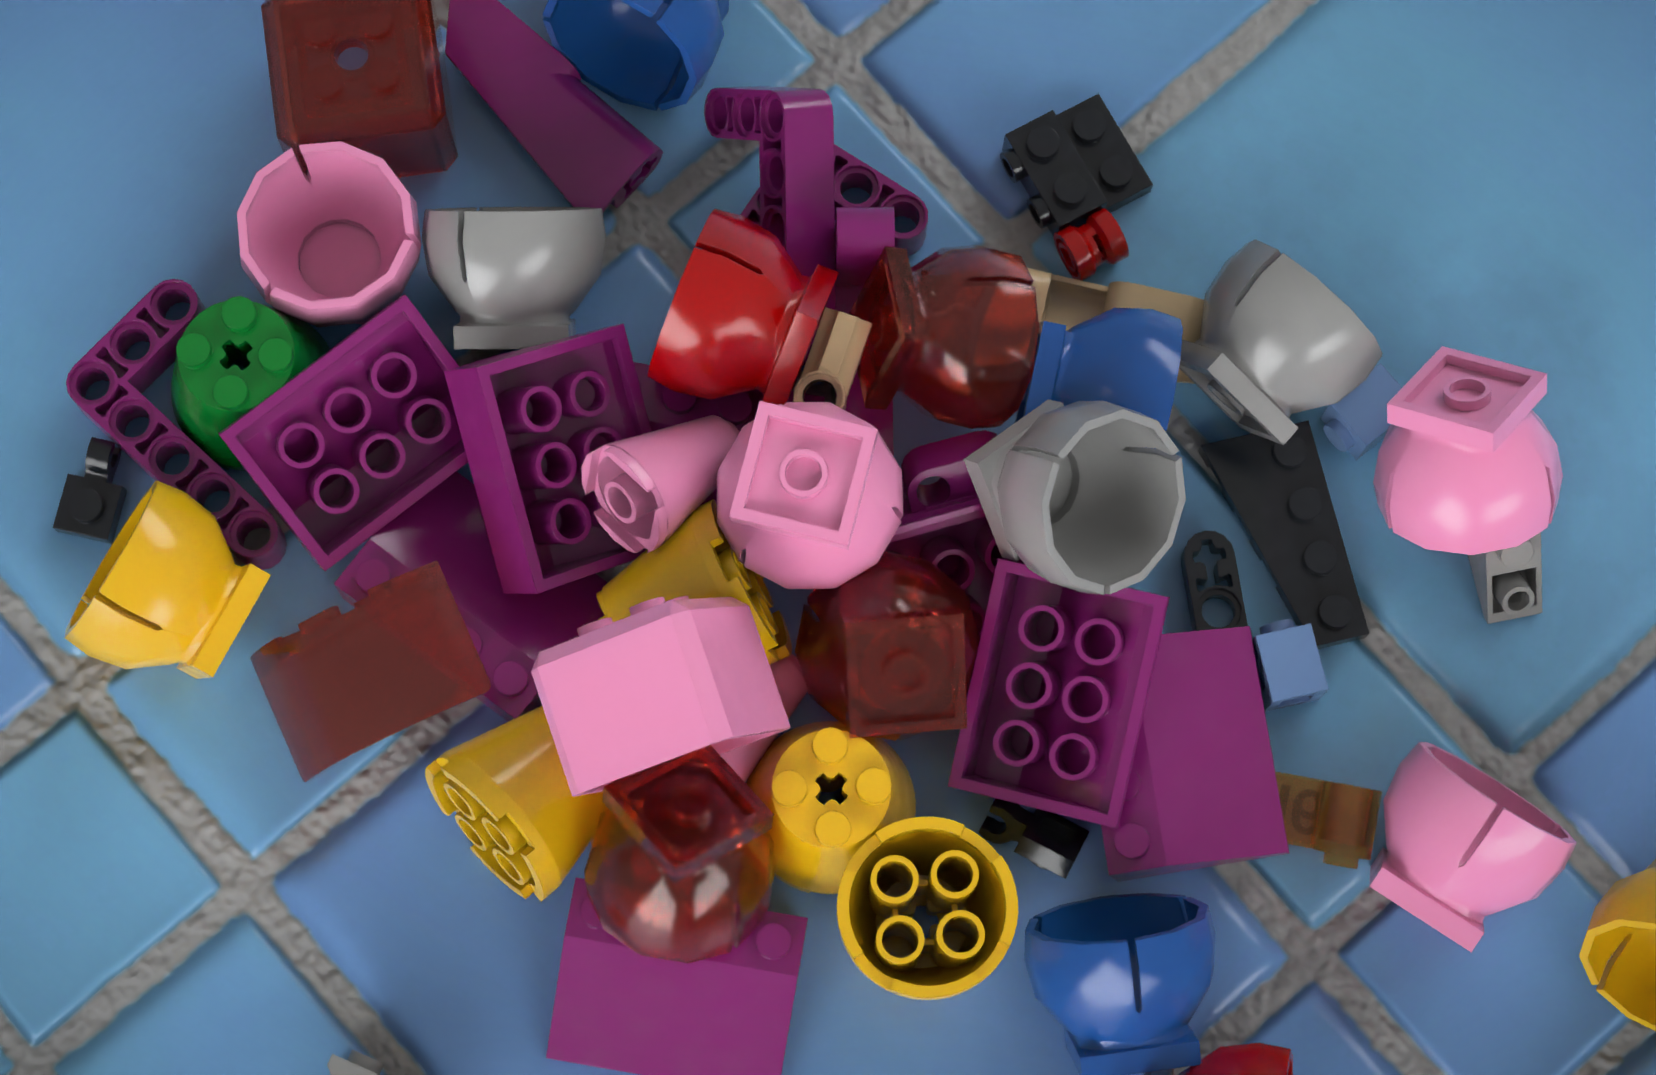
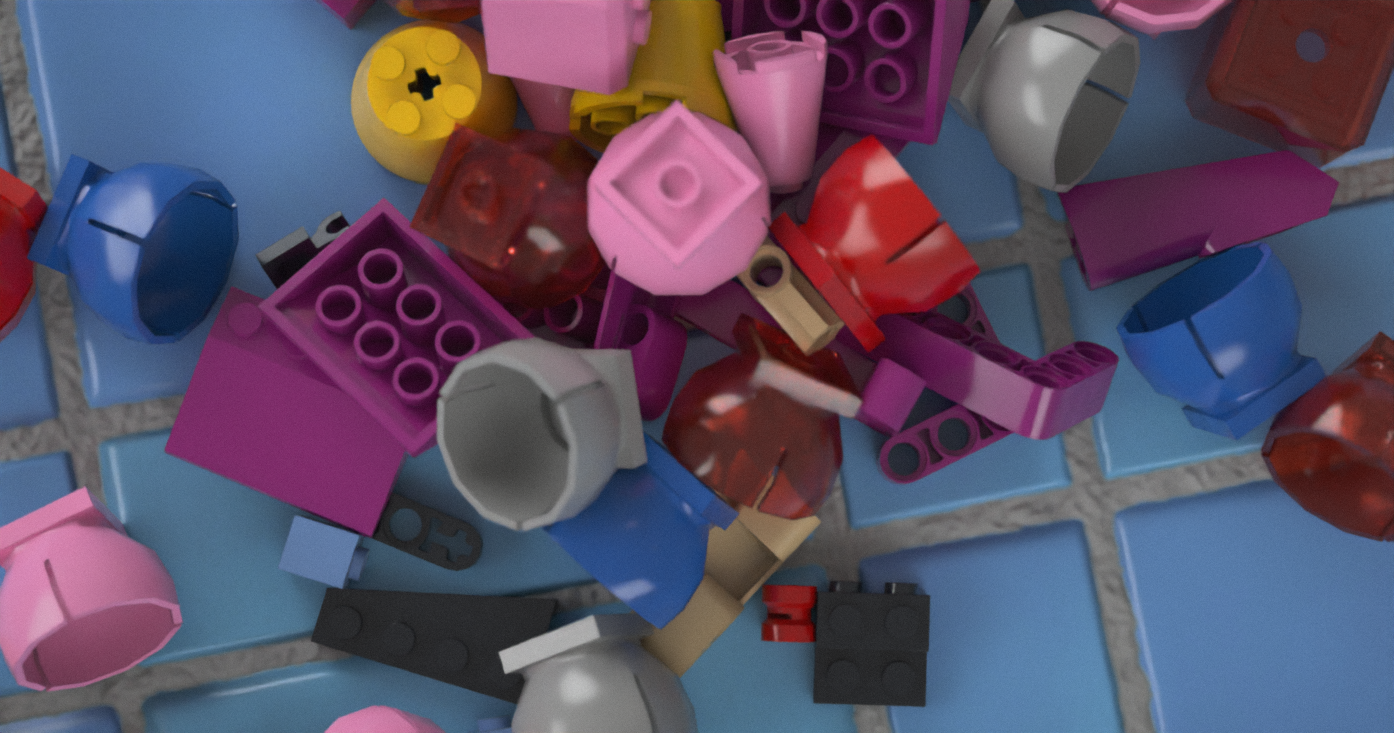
camera: 120 degrees right, 10 degrees up
(956, 879) = (259, 75): yellow cone -> none
(1329, 817) = (178, 510): clear orange door -> none

